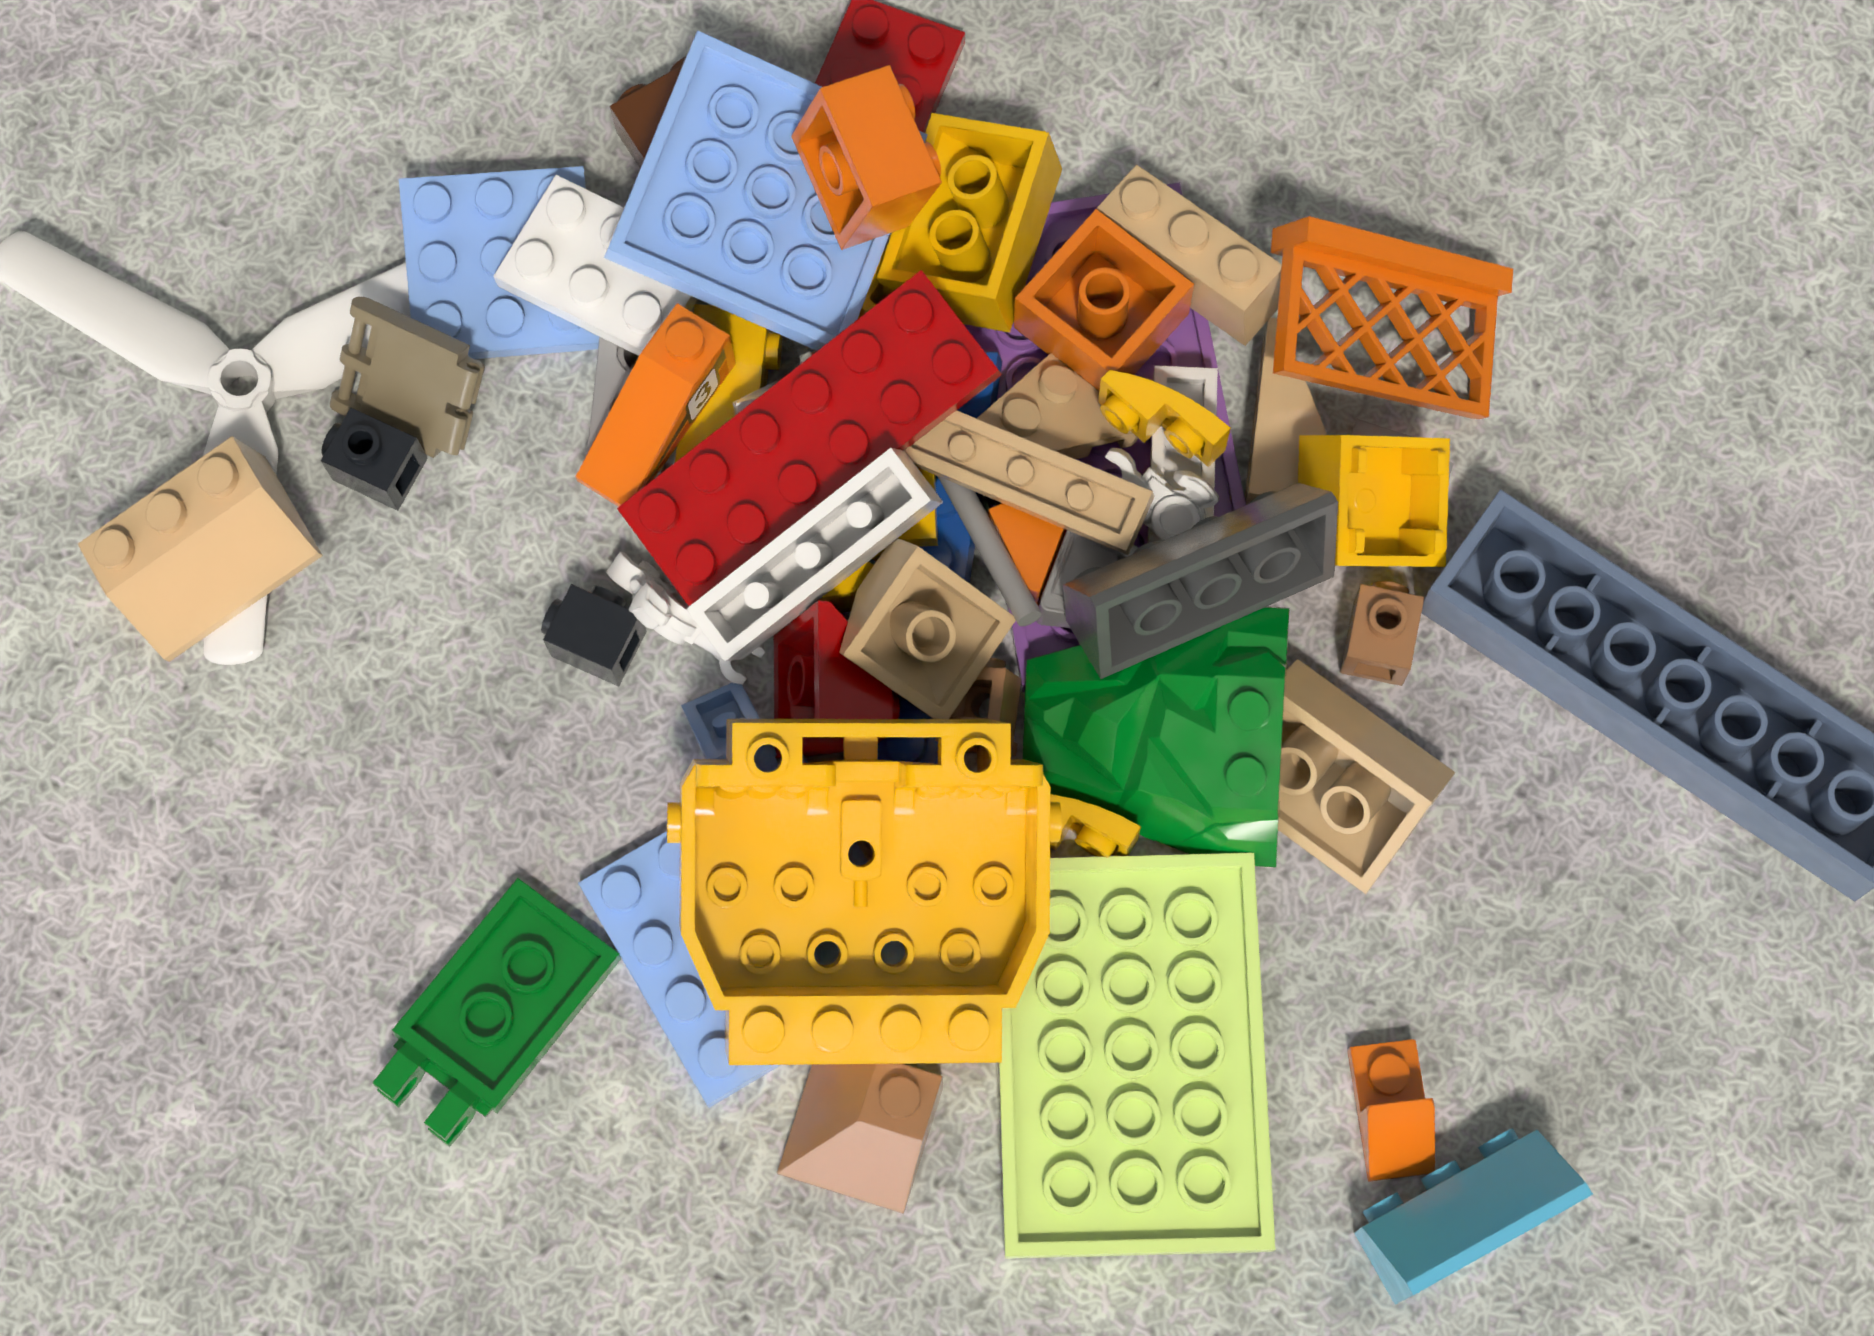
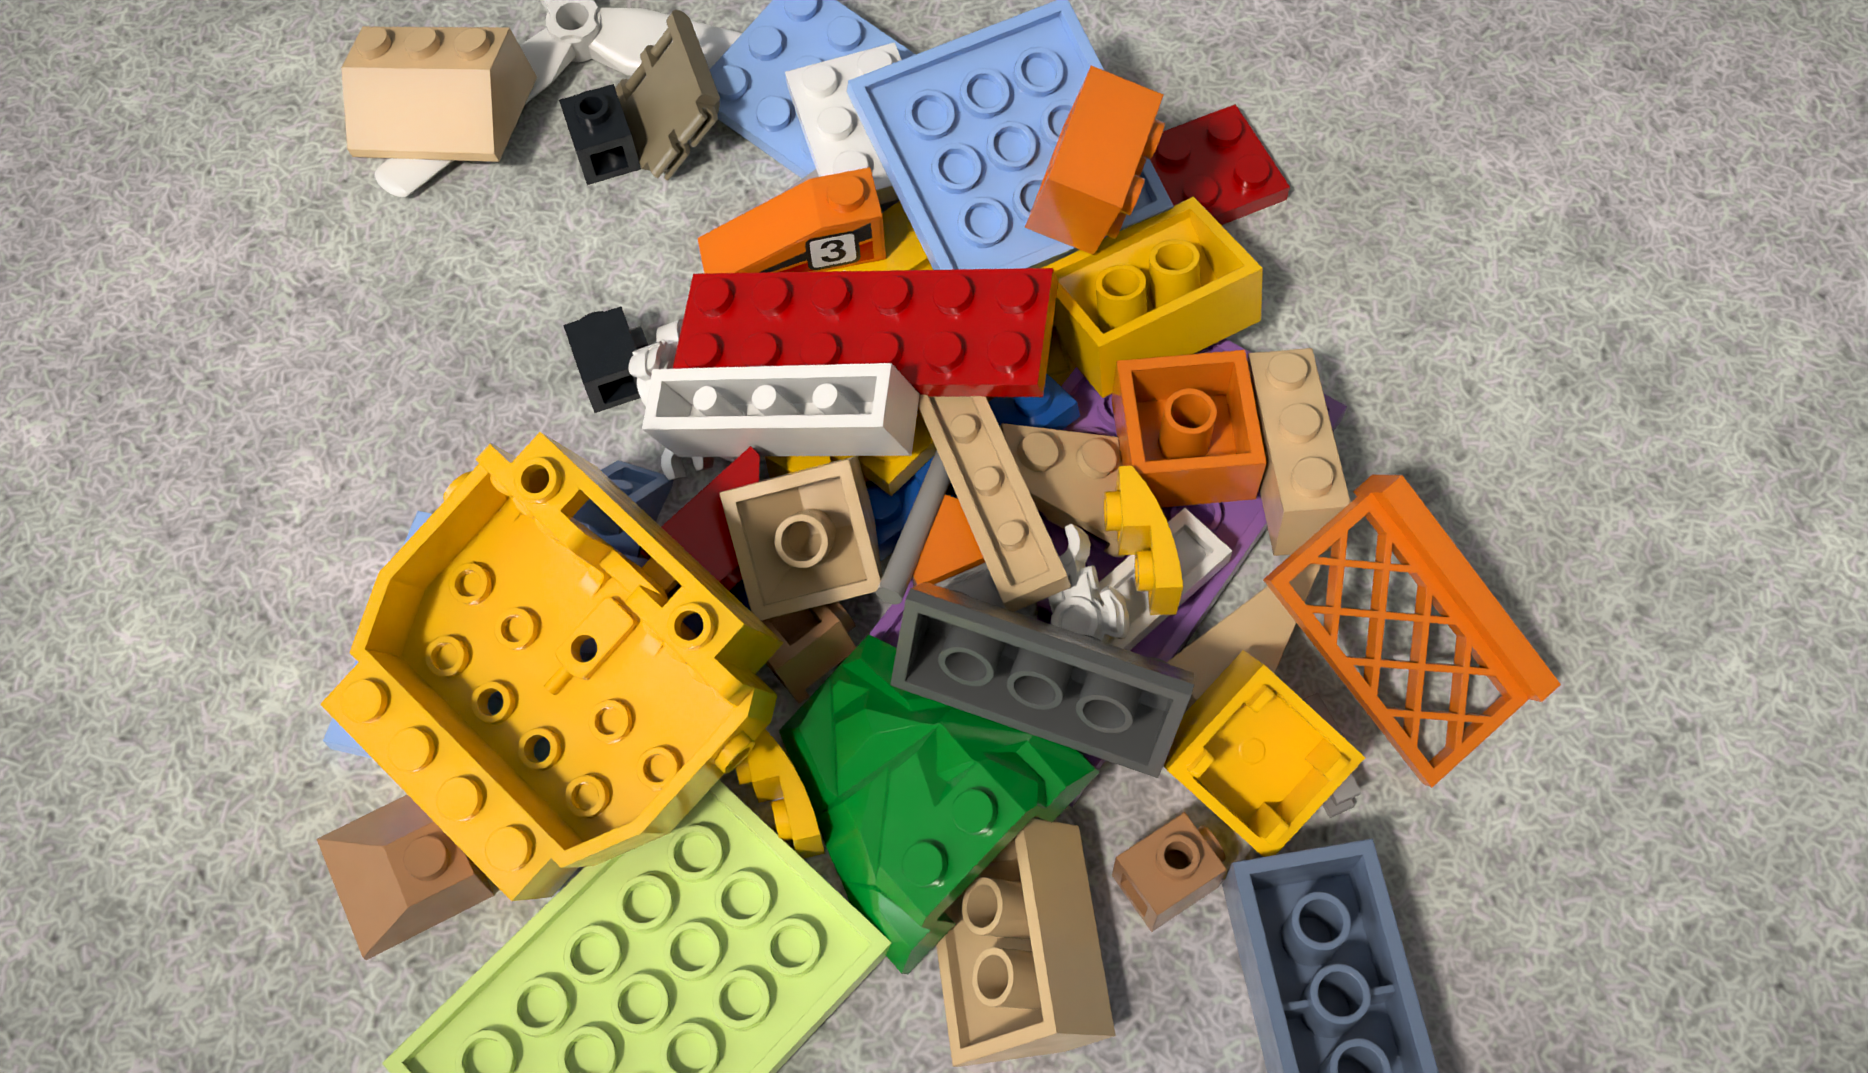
camera: 45 degrees right, 10 degrees down
(495, 1009) = (270, 544): green tile -> none

